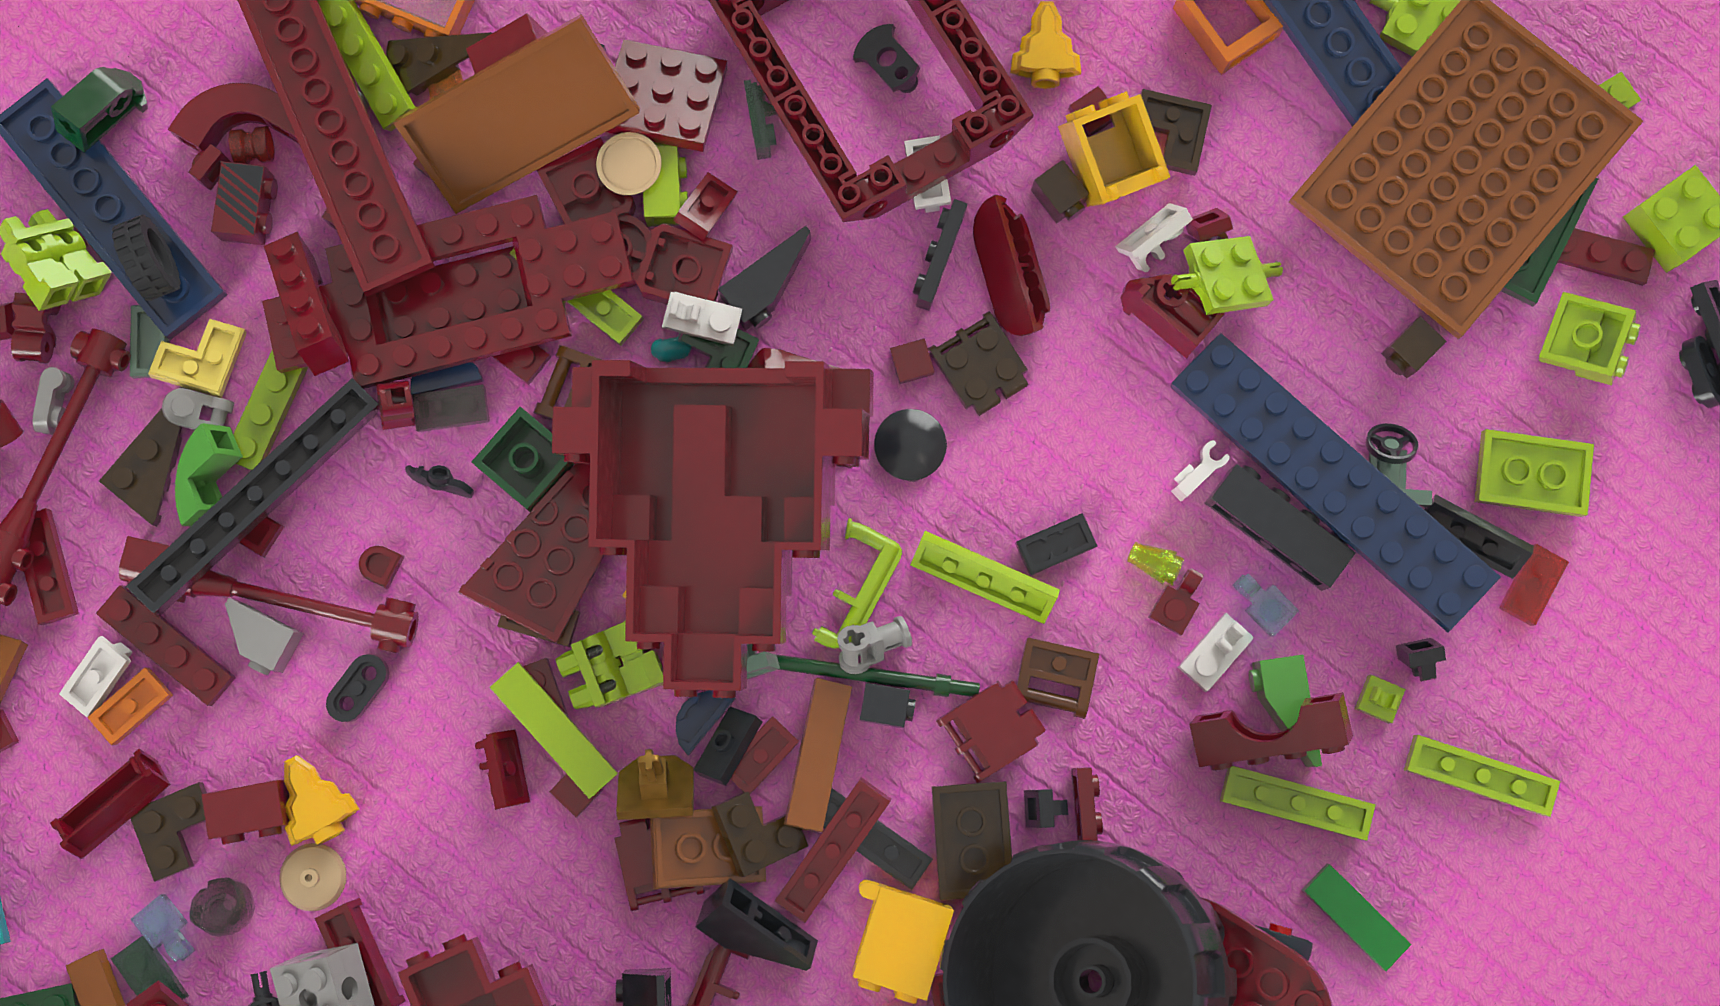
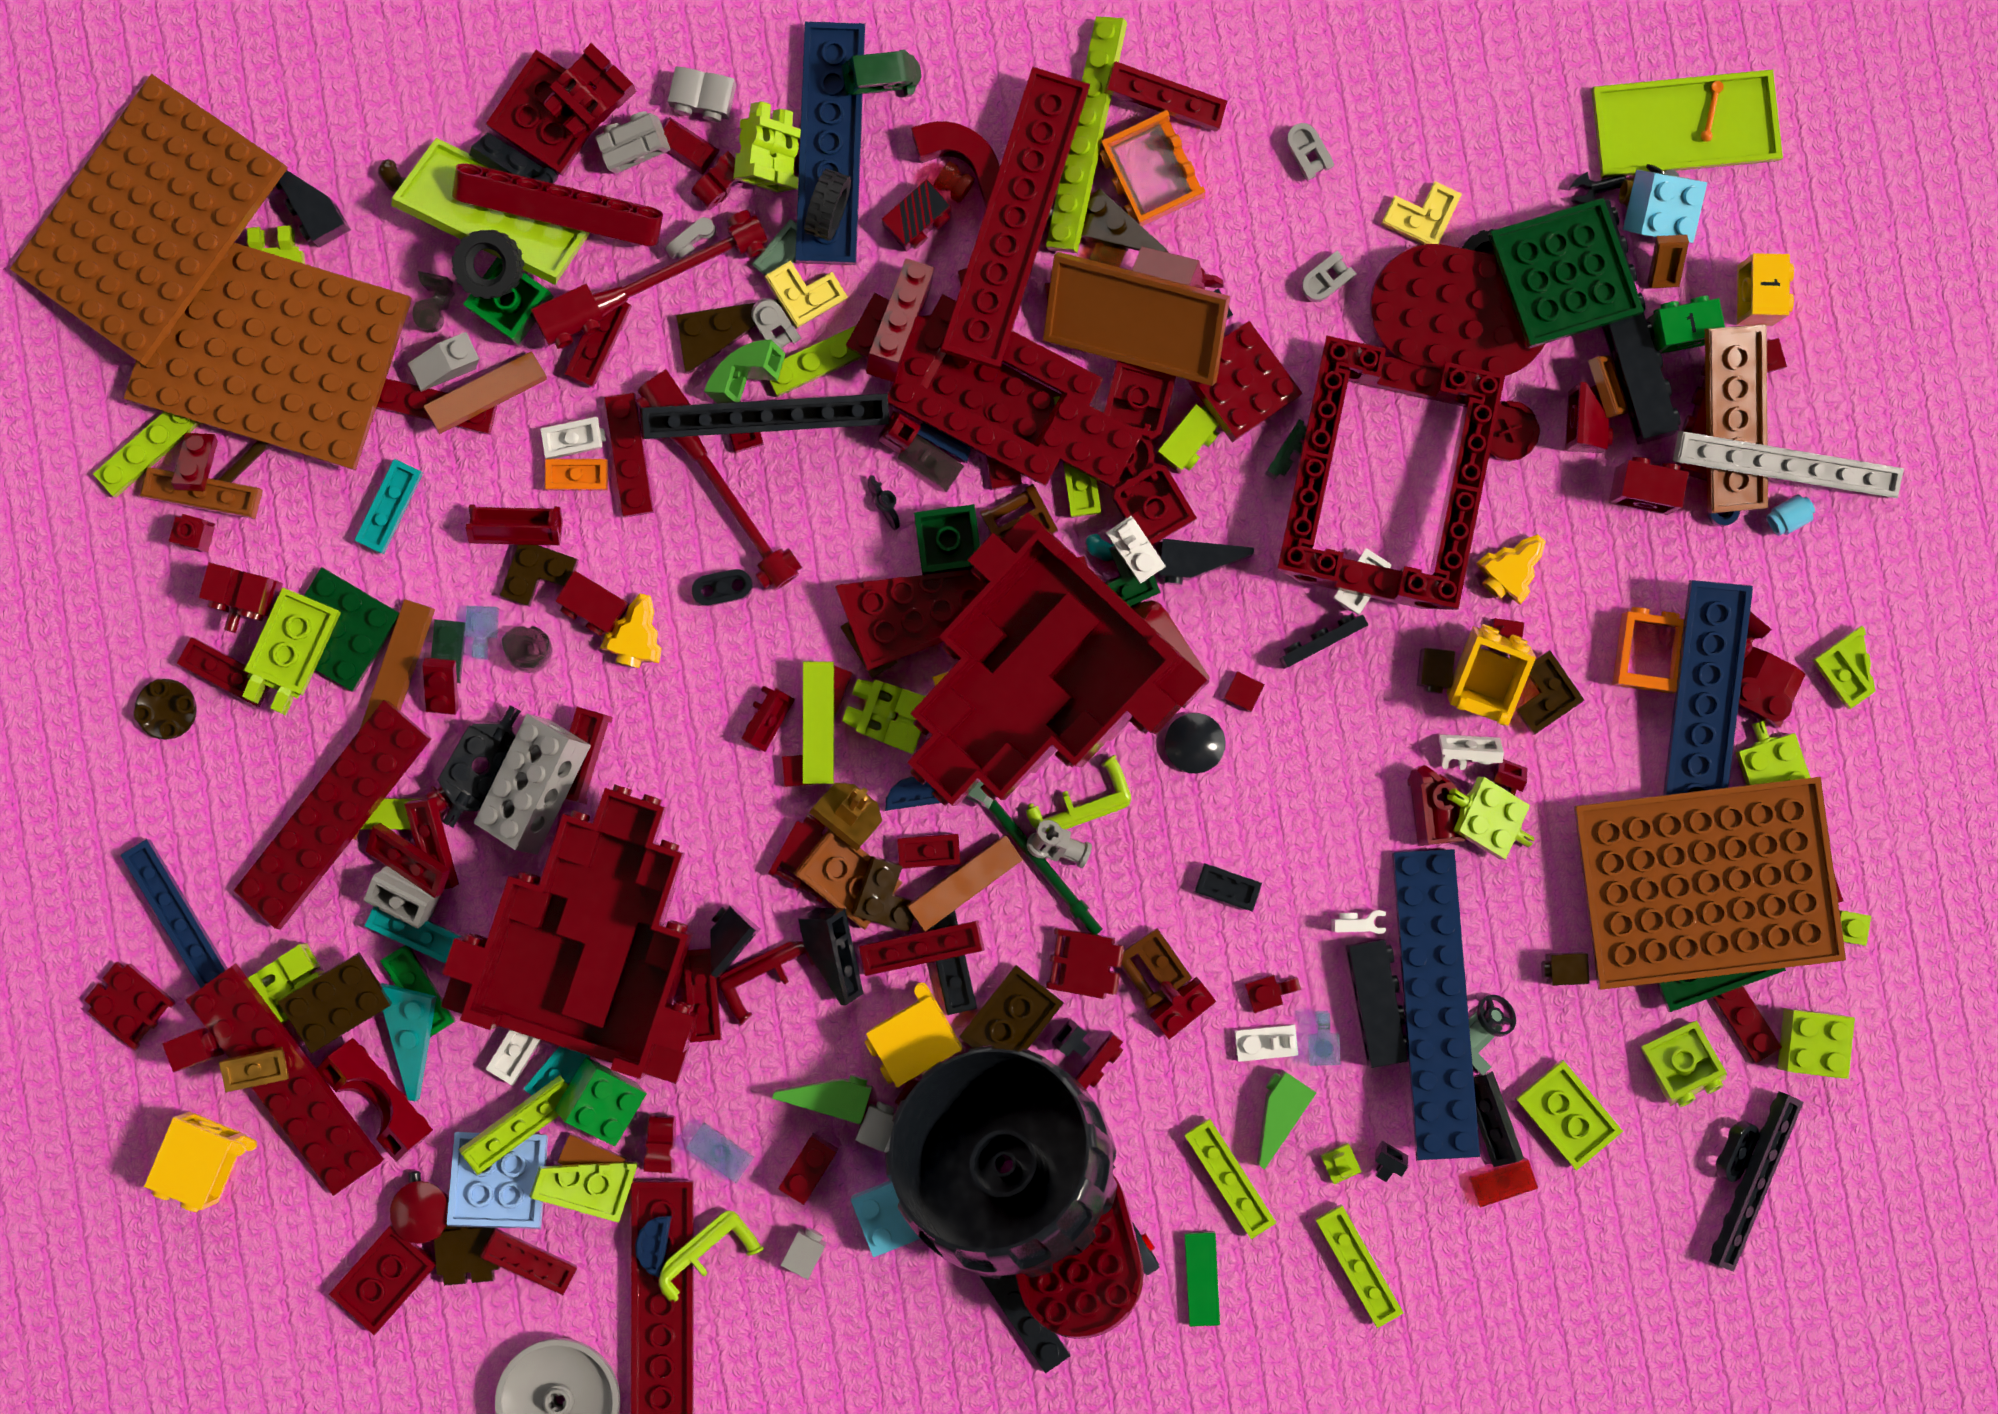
camera: 45 degrees right, 5 degrees up
(207, 166) = (916, 172): dark red plate -> none
(261, 637) = (691, 504): light grey slope -> none
(312, 877) = (595, 678): tan piece -> none
(380, 565) = (801, 522): dark red tile -> none
(628, 163) = (1178, 409): tan piece -> none
(705, 206) = (1203, 477): dark red plate -> none
(727, 746) = (914, 827): black plate -> none
(877, 42) = (1411, 467): black piece -> none
(887, 706) = (1033, 891): black brick -> none
(981, 365) = (1285, 733): dark brown plate -> none
(985, 577) = (1165, 867): lime plate -> none
(1010, 267) = (1359, 689): dark red brick -> none
(1112, 688) = (1181, 1006): none -> dark red plate
(1156, 562) = (1280, 955): clear neon green cone -> none
(1224, 739) = (1221, 1099): dark red arch -> none

